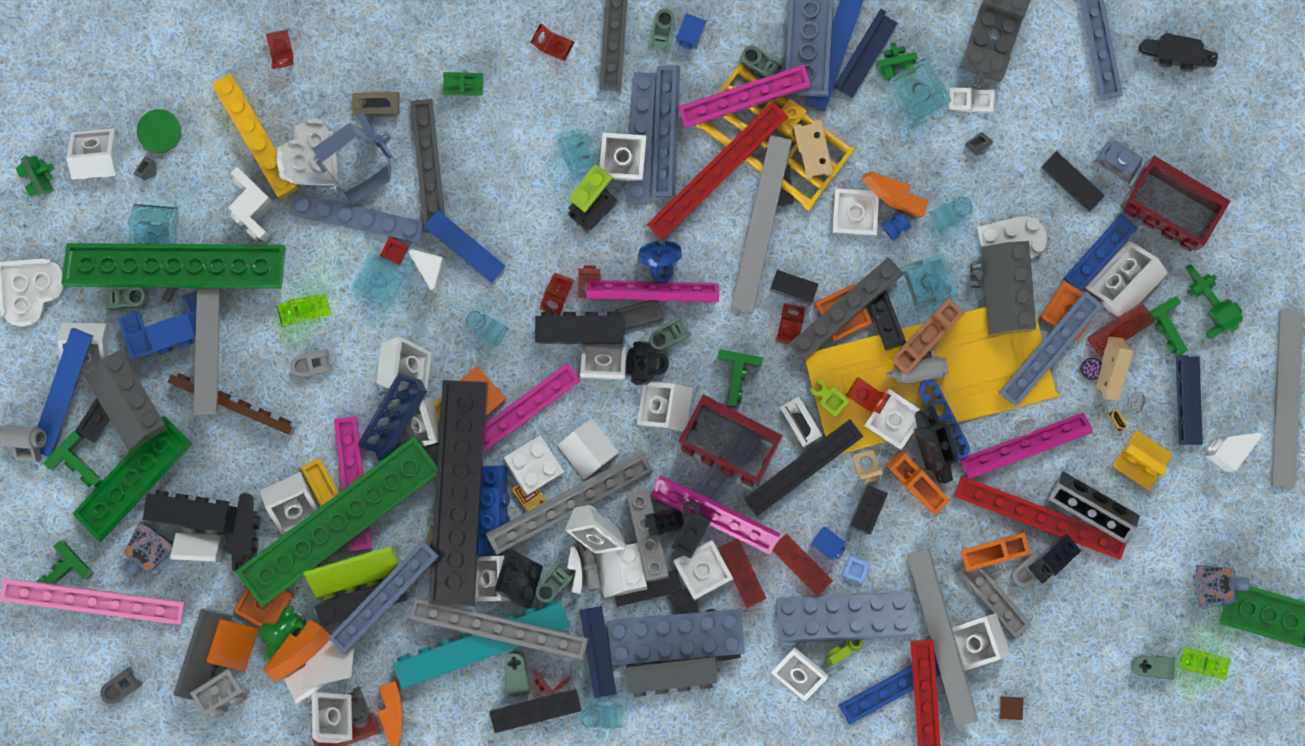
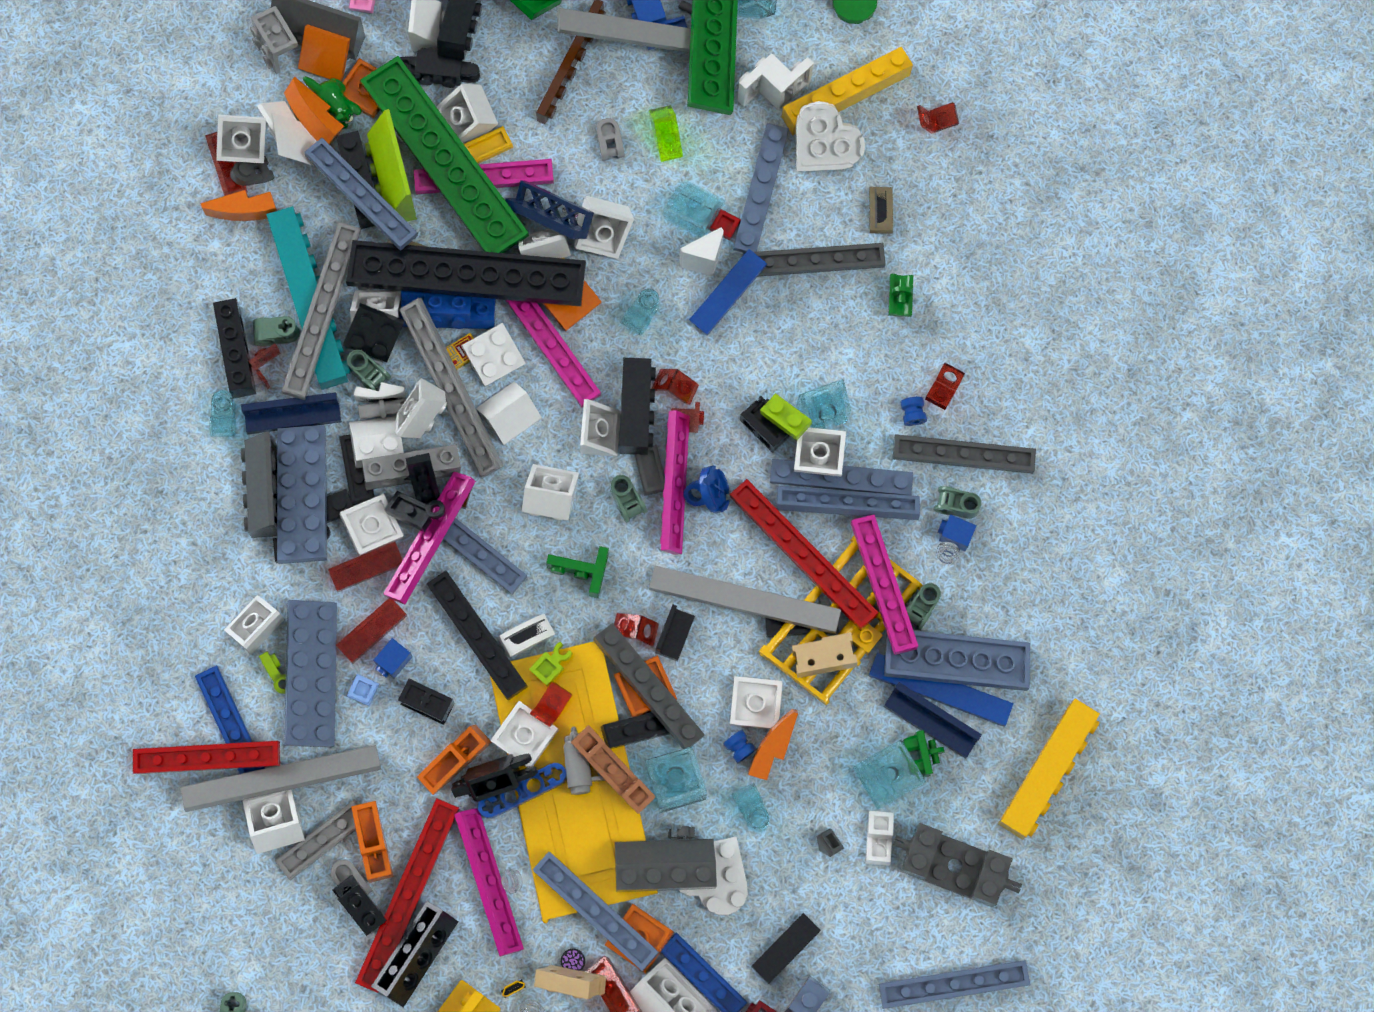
camera: 90 degrees right, 10 degrees down
(344, 136) = (845, 199): sand blue piece -> none
(575, 71) = (913, 411): none -> blue wheel
(642, 363) = (596, 468): black tile -> none
(739, 420) = (530, 515): dark red hose -> none
(870, 474) = (465, 707): tan bracket -> none
(1011, 708) = (198, 854): reddish brown tile -> none

